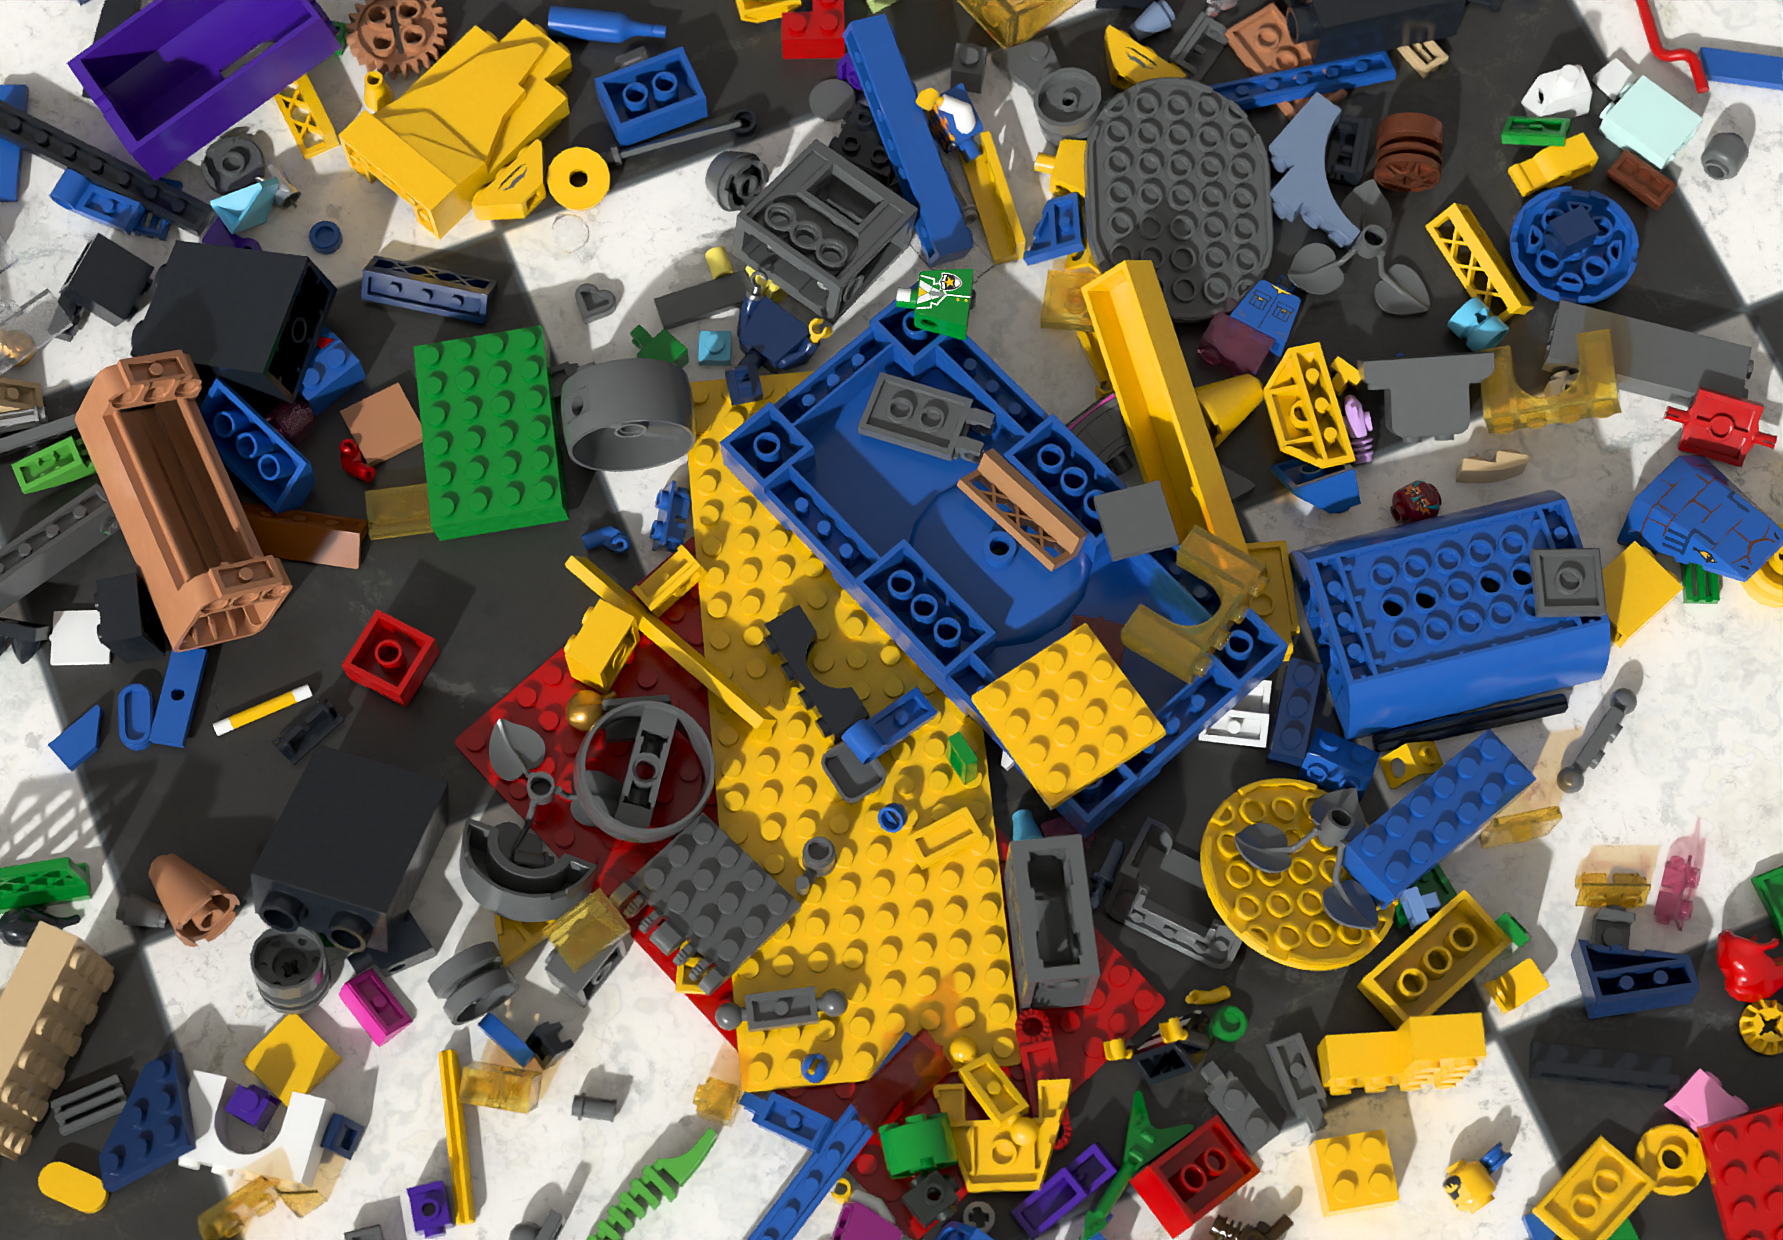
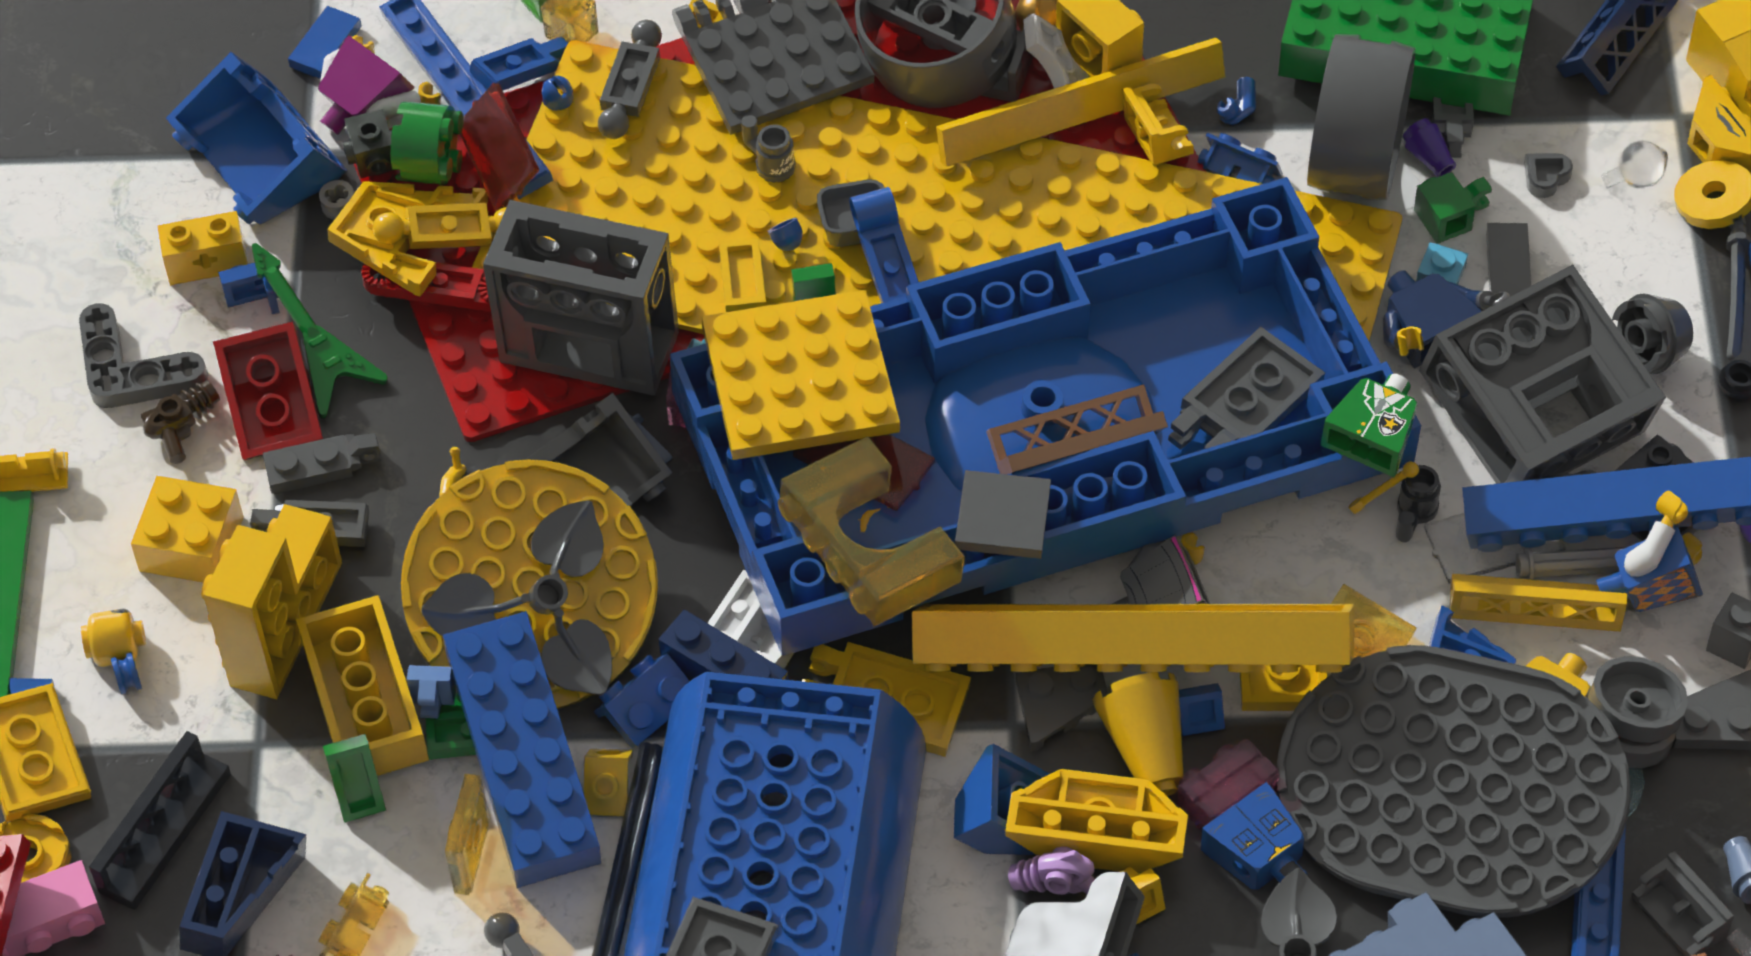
camera: 115 degrees right, 15 degrees down
(638, 672) = (1048, 47): none -> white tile
(743, 385) = (1371, 258): dark blue tile -> none
(793, 639) = (1026, 202): black arch -> none
(1066, 1190) = (321, 278): dark purple slope -> none
(1133, 63) = (1682, 821): yellow slope -> none
(1171, 1050) = (406, 400): black torso -> none
(1229, 1023) = (412, 487): green tile -> none
(1415, 502) = (929, 906): dark red head -> none
(1517, 986) = (298, 773): yellow bracket -> none
(1612, 926) = (302, 902): dark grey bracket -> none

